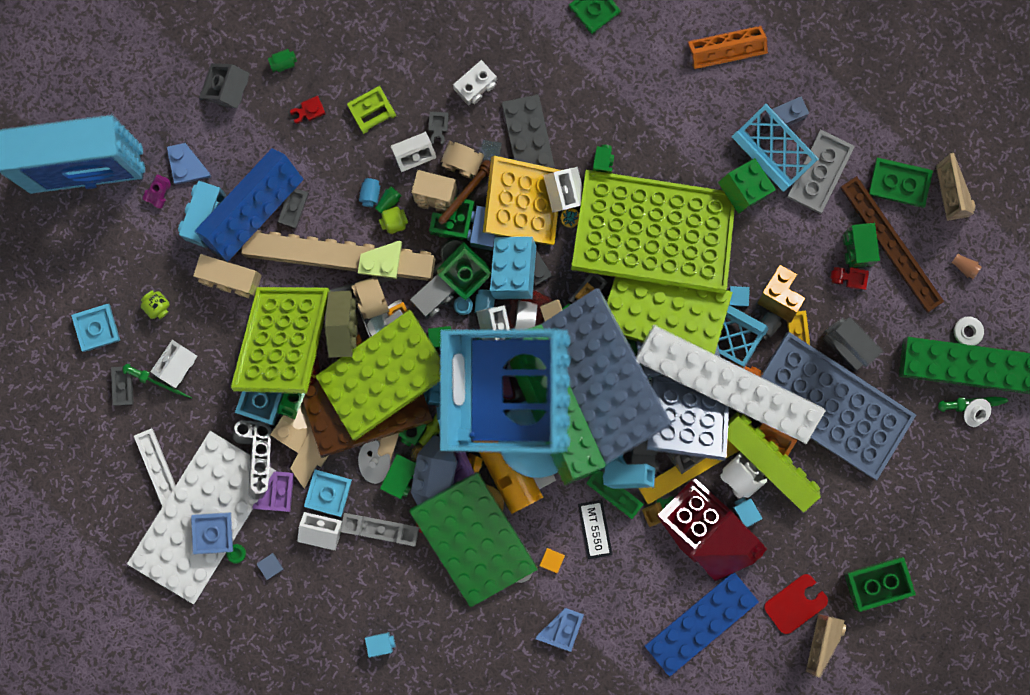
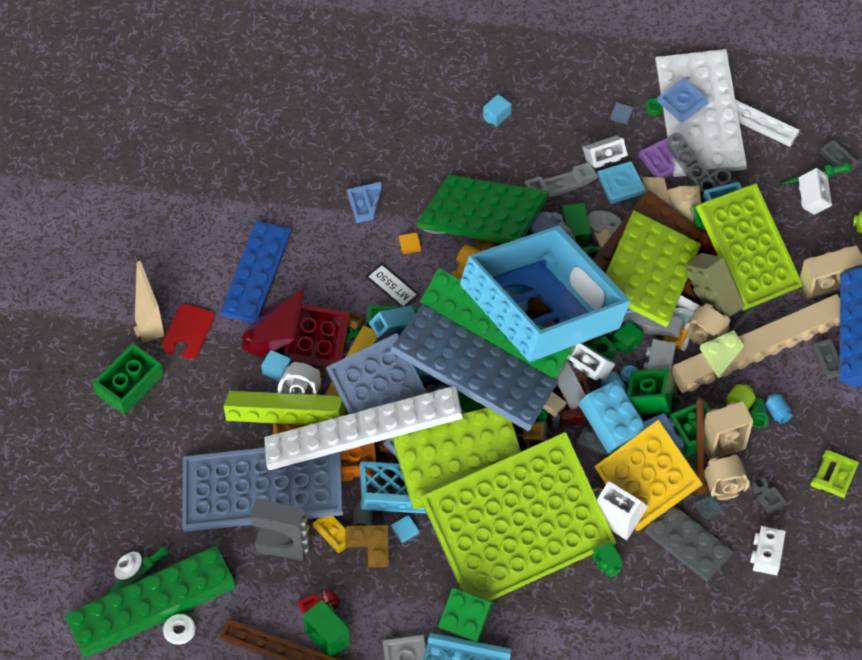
camera: 145 degrees right, 25 degrees down
(413, 151) = (771, 458): white brick -> none

